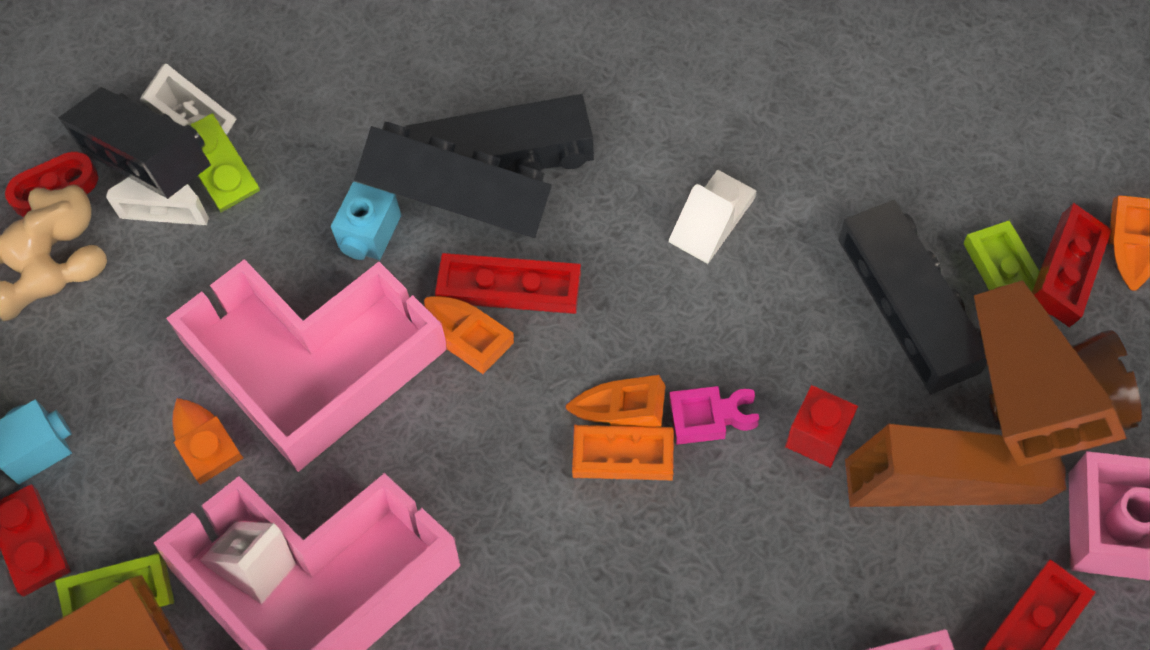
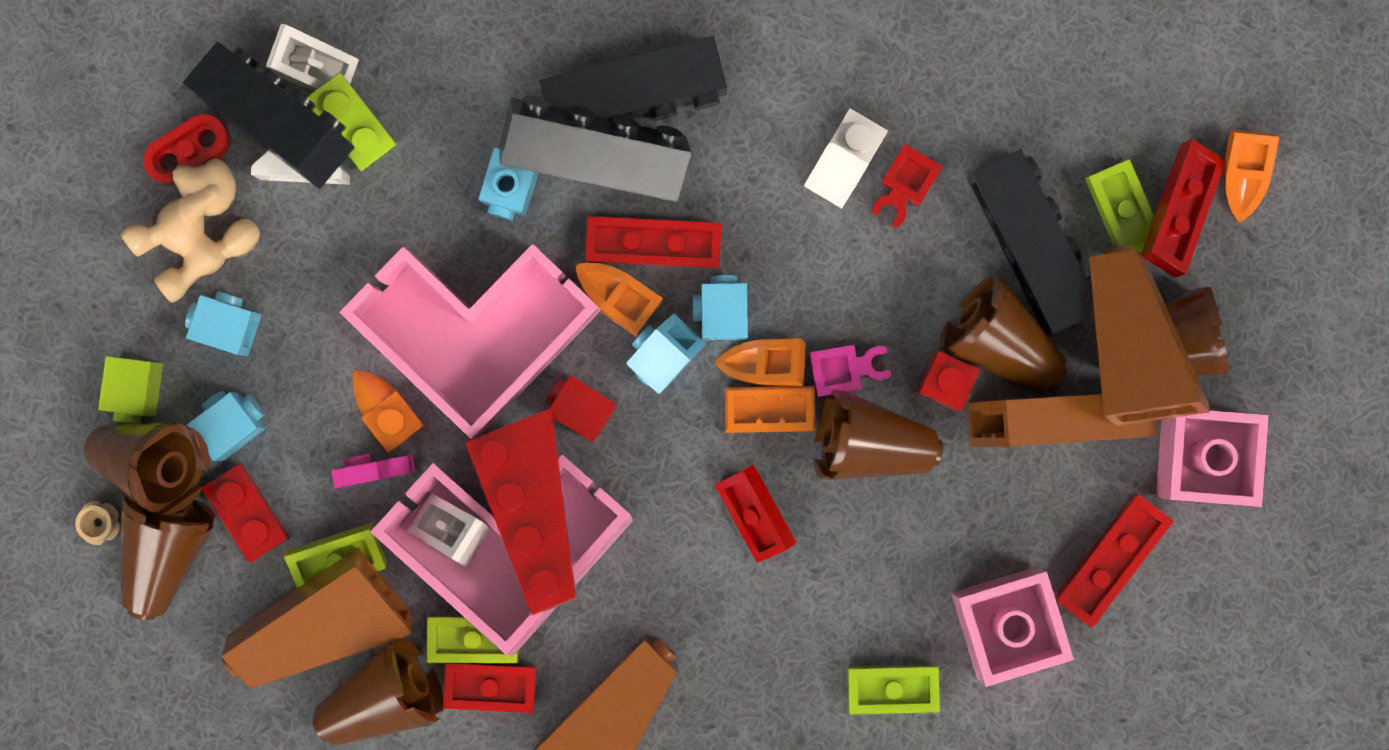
camera: 10 degrees left, 25 degrees up
(48, 341) = (222, 323): none -> medium azure brick
(168, 495) = (361, 469): none -> dark pink plate
(337, 524) = (527, 501): none -> red wing
(414, 439) = (580, 407): none -> red brick
(510, 384) = (664, 352): none -> brick
(576, 347) = (722, 309): none -> medium azure brick
(601, 563) = (755, 514): none -> red plate
(739, 484) = (871, 441): none -> reddish brown cone
(775, 235) = (907, 180): none -> red plate
(886, 381) = (1004, 339): none -> reddish brown cone

